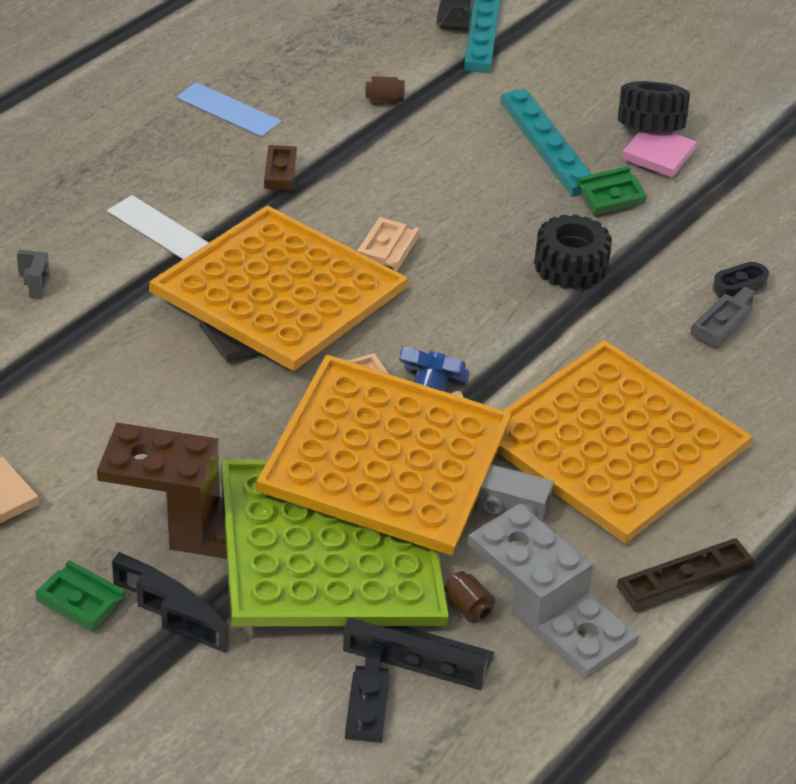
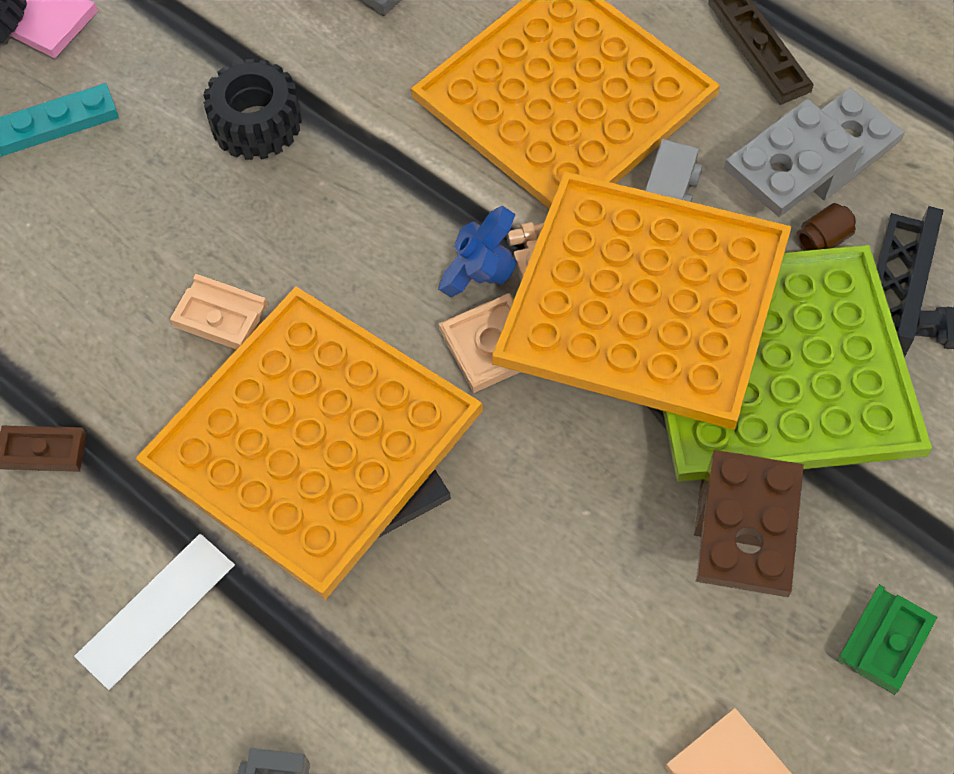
camera: 85 degrees left, 20 degrees up
(178, 606) = (891, 525): black slope -> none
(611, 190) = (128, 68): green plate -> none

